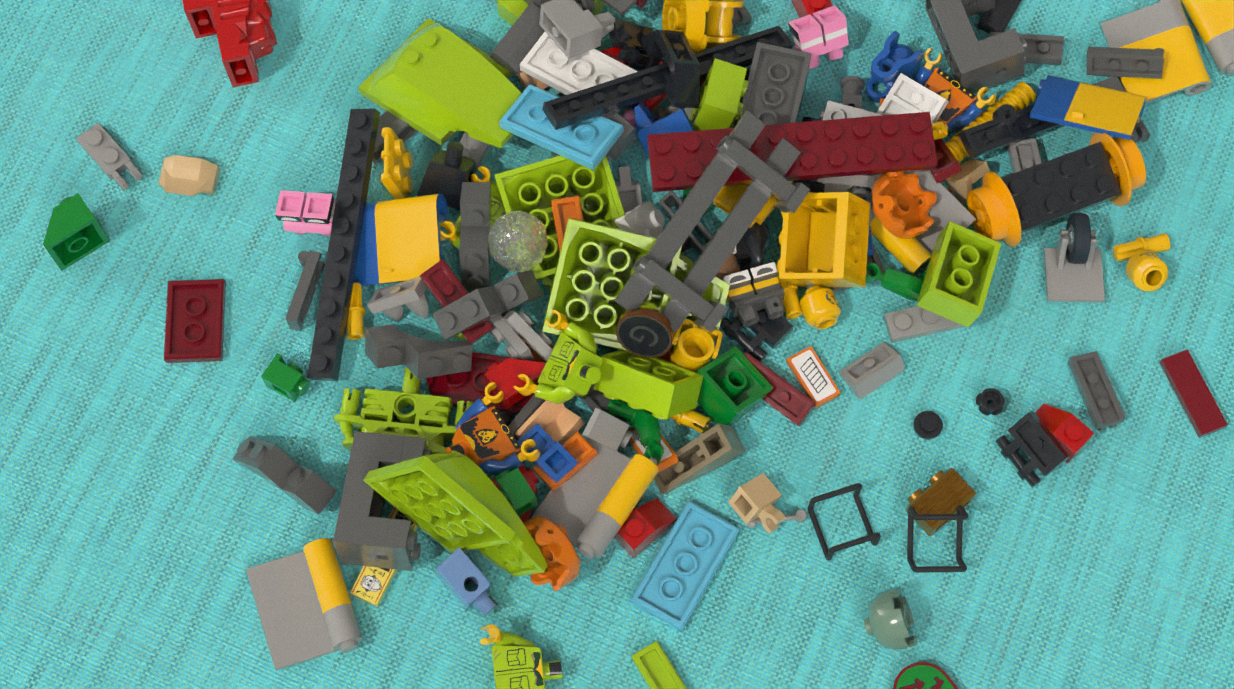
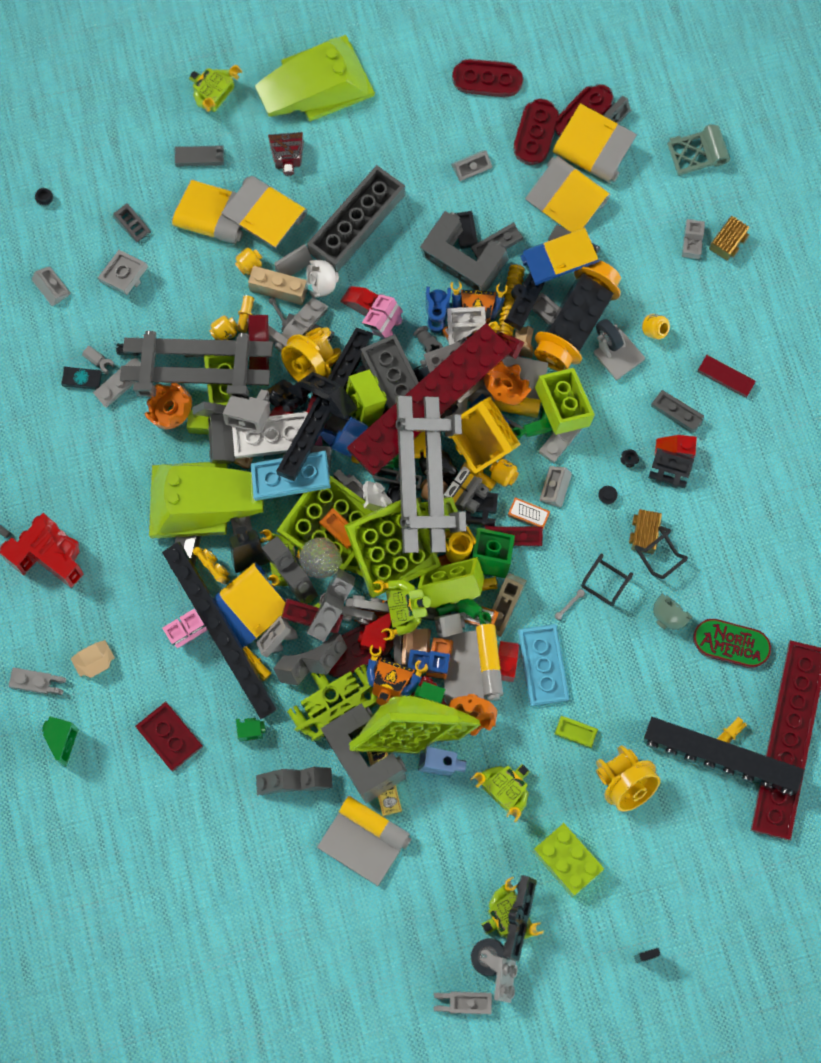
camera: 40 degrees left, 5 degrees up
(305, 288) = (208, 654): dark grey hinge -> none
(645, 332) = (431, 557): tile -> none
(757, 500) = (554, 603): tan brick -> none
(1125, 62) = (557, 214): dark grey hinge -> none
(1153, 244) = (641, 314): yellow axle -> none

